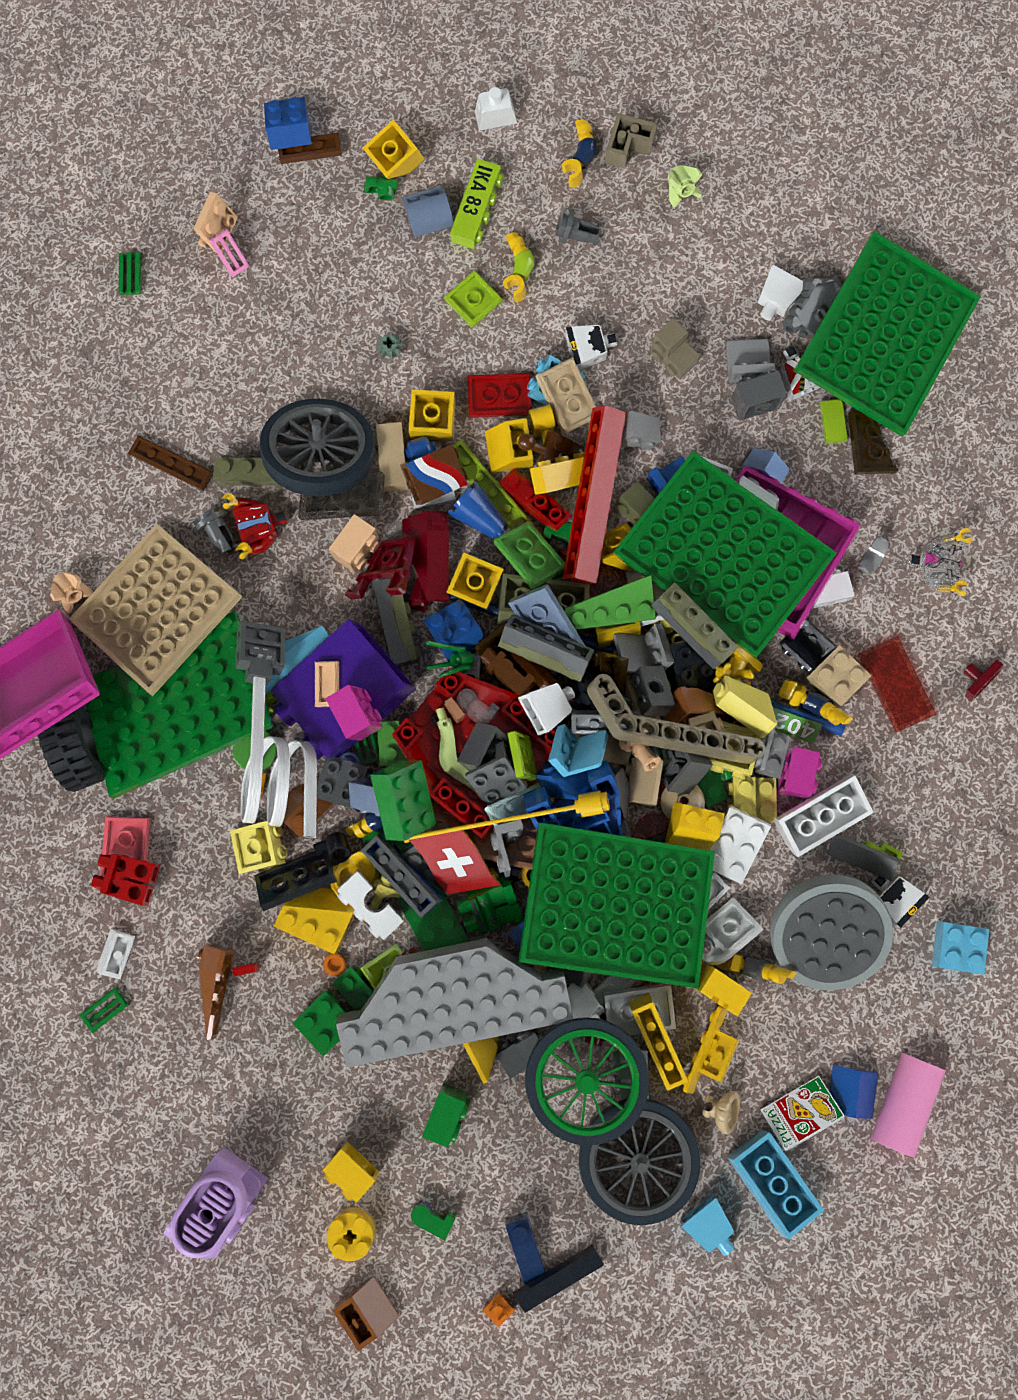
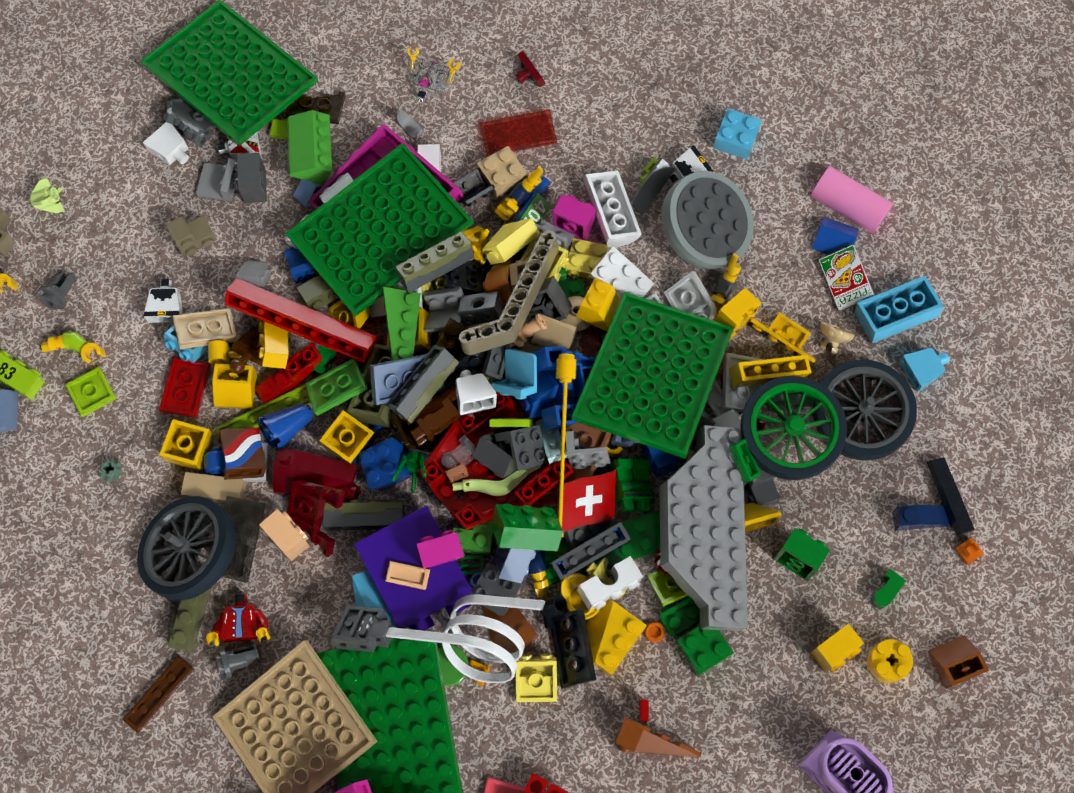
camera: 80 degrees left, 10 degrees down
(531, 1029) = (744, 460): none -> green tile
(812, 448) = (309, 146): none -> bright green slope

